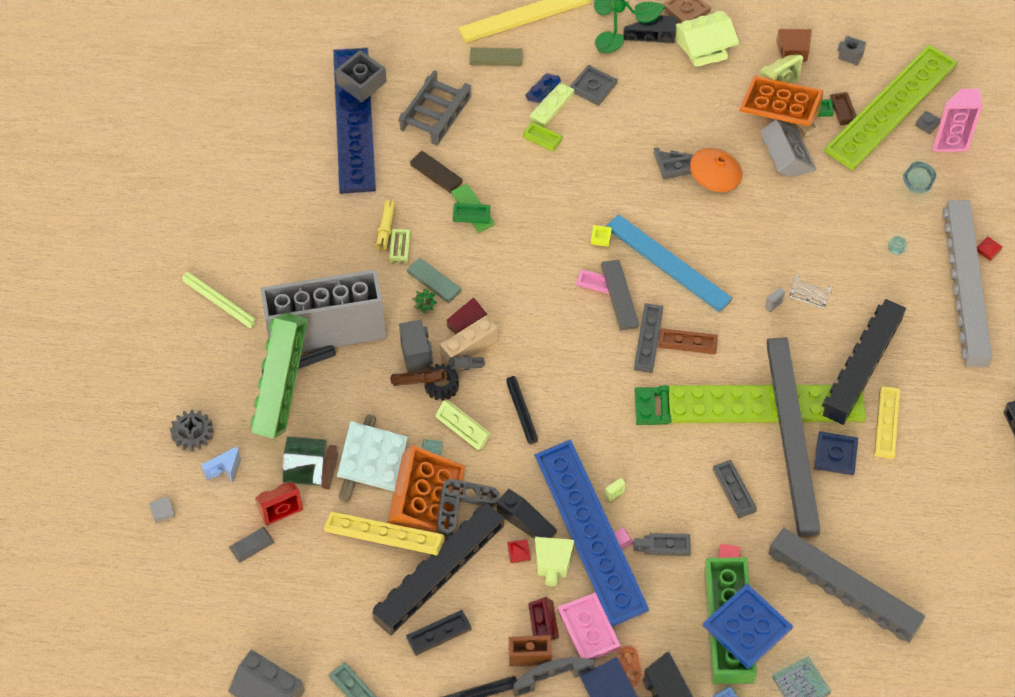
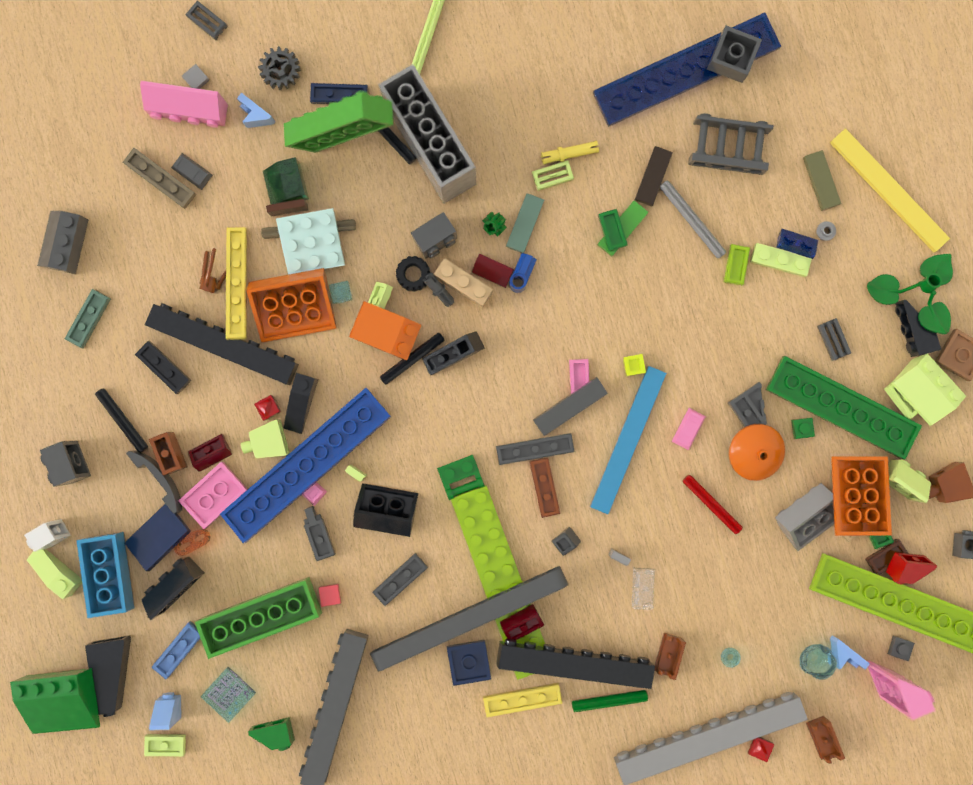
camera: 70 degrees right, 30 degrees up
(112, 484) = (218, 30): none -> dark grey tile
(185, 520) = (183, 104): none -> bright pink slope
(240, 391) = (327, 93): none -> dark blue tile
(245, 573) = (159, 178): none -> dark tan plate
(279, 503) = (233, 177): red slope -> none
(371, 561) = (207, 282): none -> dark orange plant
(425, 376) = (405, 268): reddish brown pin -> none
(454, 499) = (291, 332): dark grey beam -> none
(484, 296) = (522, 271): none -> blue piece
(488, 154) = (692, 219): none -> light grey axle
(488, 414) = (385, 330): none -> orange slope
(531, 372) = (453, 353): none -> black slope
(540, 66) = (821, 233): none -> light grey plate
(593, 85) = (822, 293): dark grey tile -> none
(637, 86) = (841, 337): none -> dark grey tile
(662, 476) = (385, 510): none -> black slope
(675, 215) = (688, 428): none -> bright pink tile
(699, 99) = (843, 407): none -> green plate
(707, 133) = (803, 428): none -> green plate
(746, 340) = (566, 541): none -> dark grey slope
(747, 626) = (245, 639): blue plate -> none
(751, 217) = (712, 504): none -> red axle
(810, 392) = (522, 623): none -> dark red slope
(856, 648) = (274, 734): none -> green slope
(857, 93) = (909, 567): none -> red slope
(880, 287) = (670, 655): none -> dark orange hinge
(909, 351) = (610, 701): none -> green axle
(924, 154) = (845, 654): none -> light blue slope
(993, 196) = (825, 739): none -> dark orange hinge

